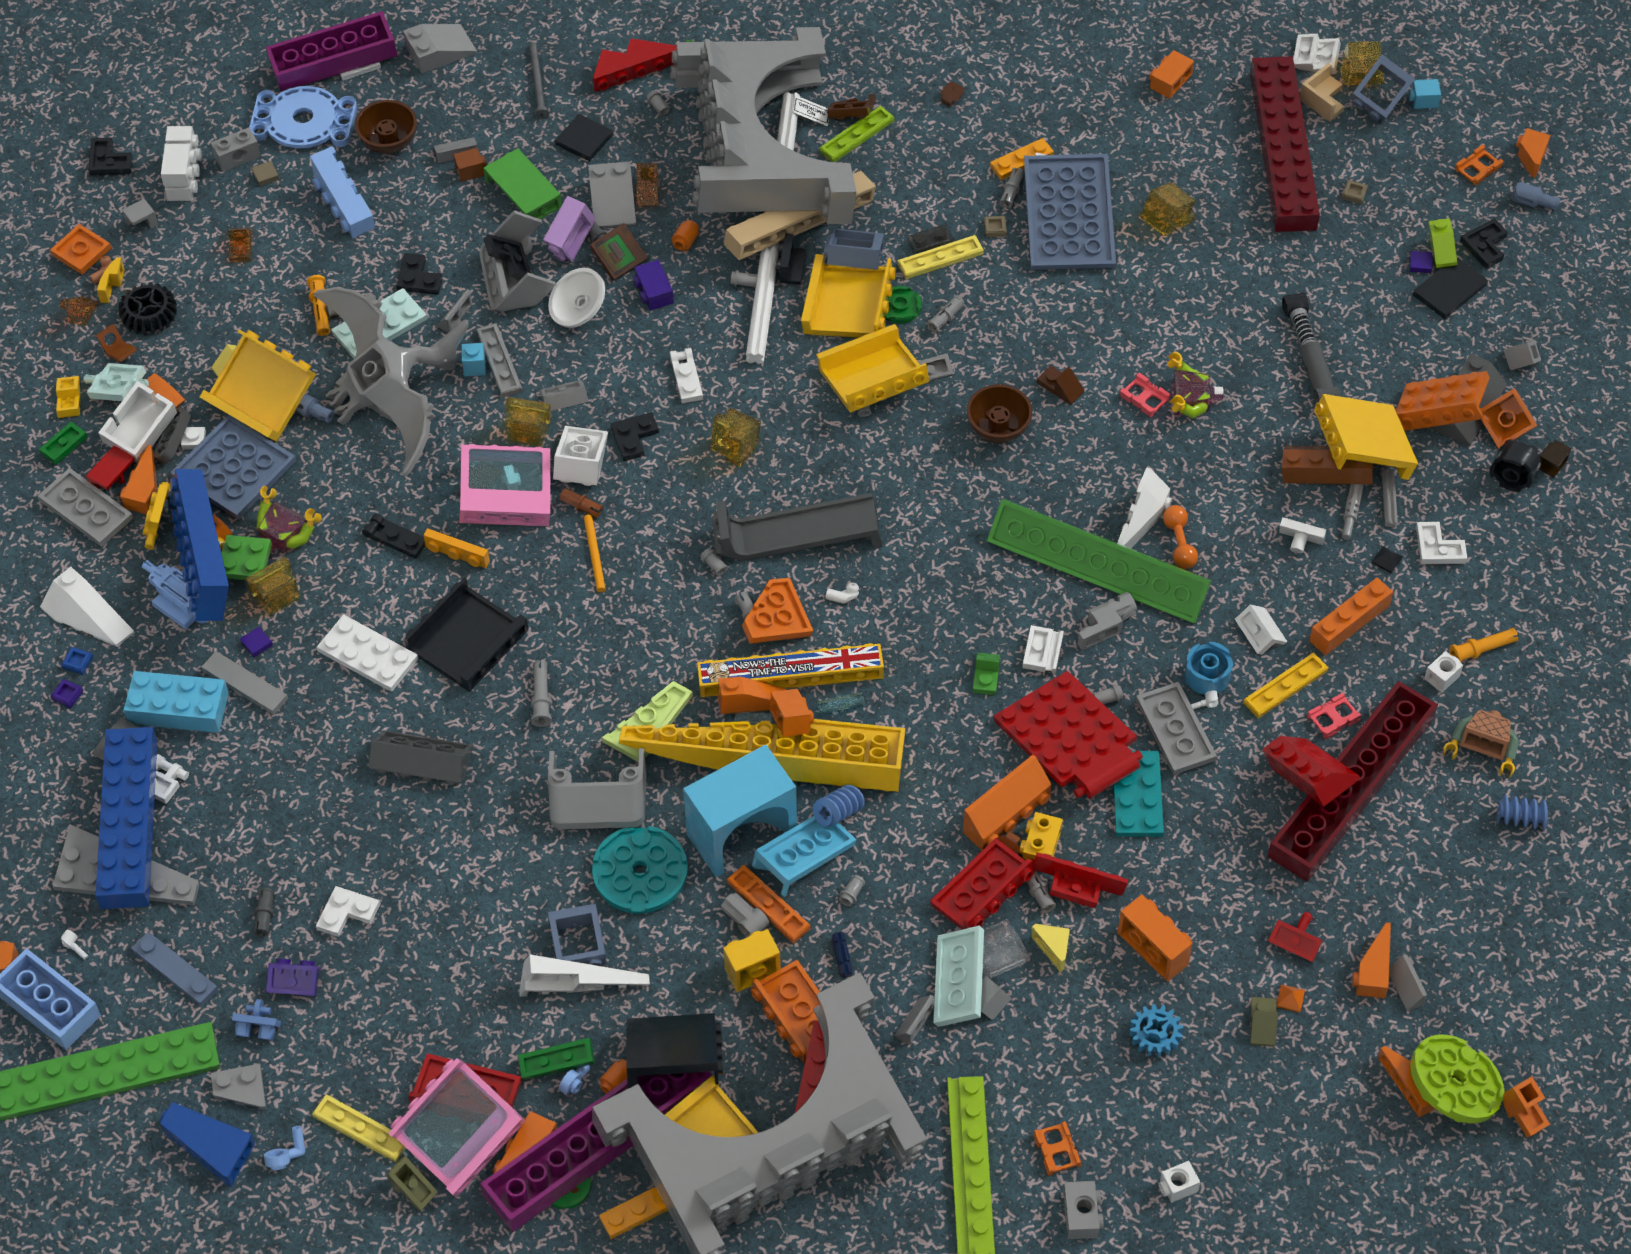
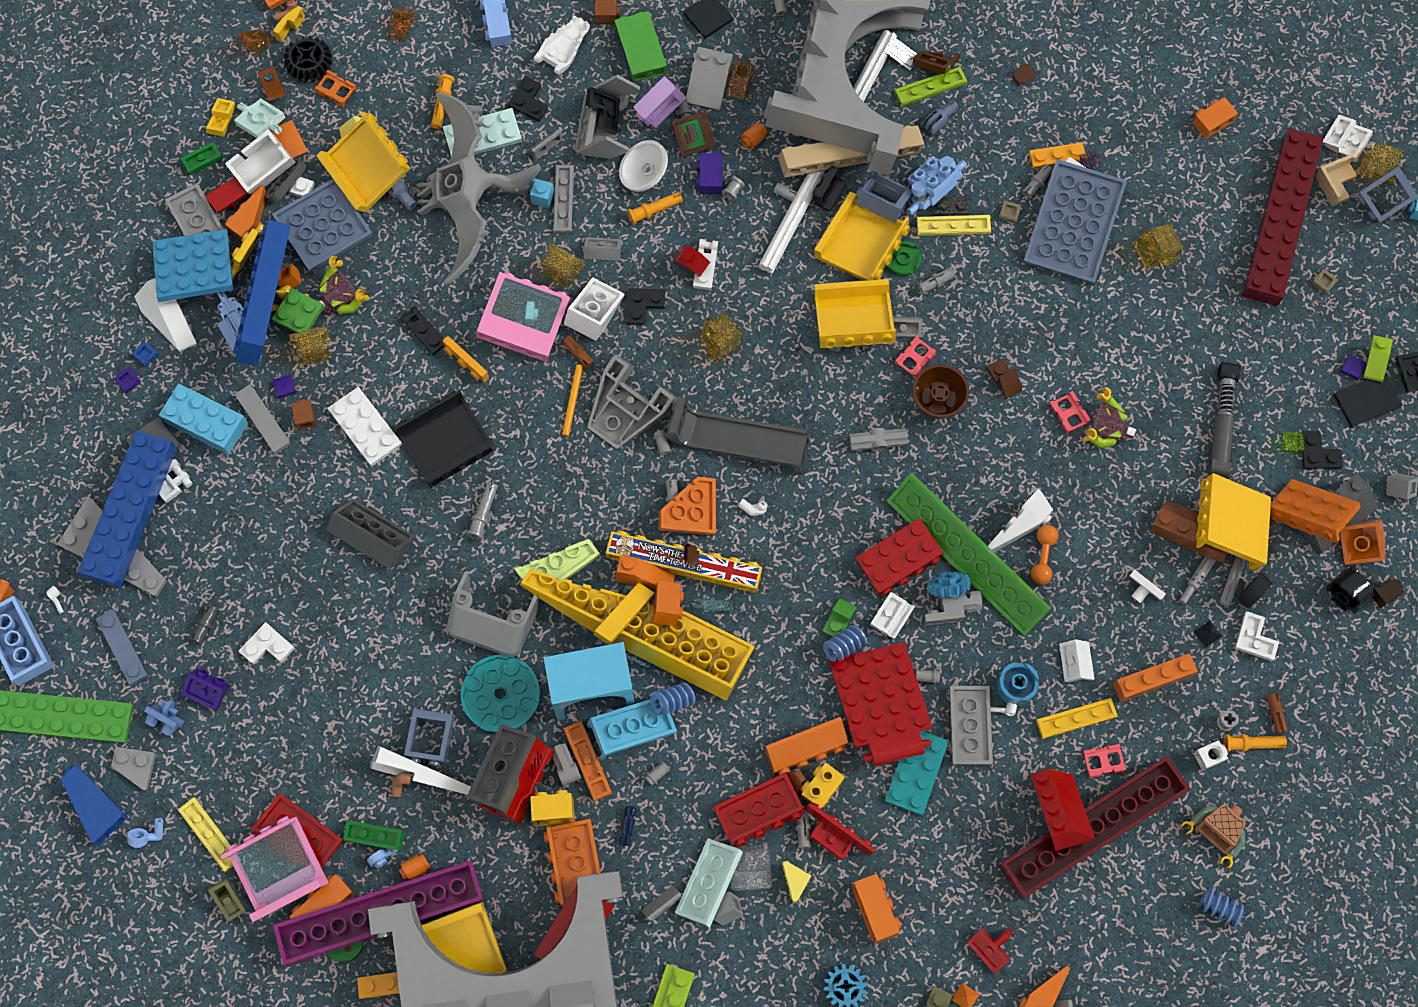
camera: 20 degrees right, 15 degrees up
(102, 546) = (192, 265): none -> dark azure plate
(189, 334) = (332, 92): none -> orange piece
(292, 661) = (303, 414): none -> dark orange brick
(435, 211) = (562, 46): none -> white animal
(561, 994) = (398, 782): none -> nougat arm
(598, 342) = (646, 210): none -> light orange pin
(656, 546) = (623, 412): none -> light grey wedge
(669, 371) = (691, 260): none -> red slope
(673, 1046) = (460, 865): black panel -> none
(685, 290) = (733, 188): none -> light grey bush
(689, 936) = (510, 773): none -> dark grey piece
(748, 732) = (624, 613): none -> yellow tile
(791, 649) = (691, 554): none -> reddish brown piece
(879, 159) = (939, 117): none -> sand blue arm
(901, 218) = (933, 181): none -> light blue piece
(951, 484) = (878, 439): none -> light grey piece
(963, 395) = (920, 360): none -> coral piece
(1004, 689) = (844, 643): none -> medium blue piece
(1026, 588) = (899, 557): none -> red bracket
(1058, 148) = (1090, 160): none -> clear purple tile
(1091, 595) = (948, 584): none -> dark azure gear
(1391, 349) = (1292, 442): none -> clear neon green plate
(1417, 497) = (1254, 590): none -> black tyre
(1420, 356) = (1317, 458): none -> black plate
(1449, 631) = (1223, 724): none -> light grey bush
(1493, 608) = (1277, 712): none -> dark orange axle

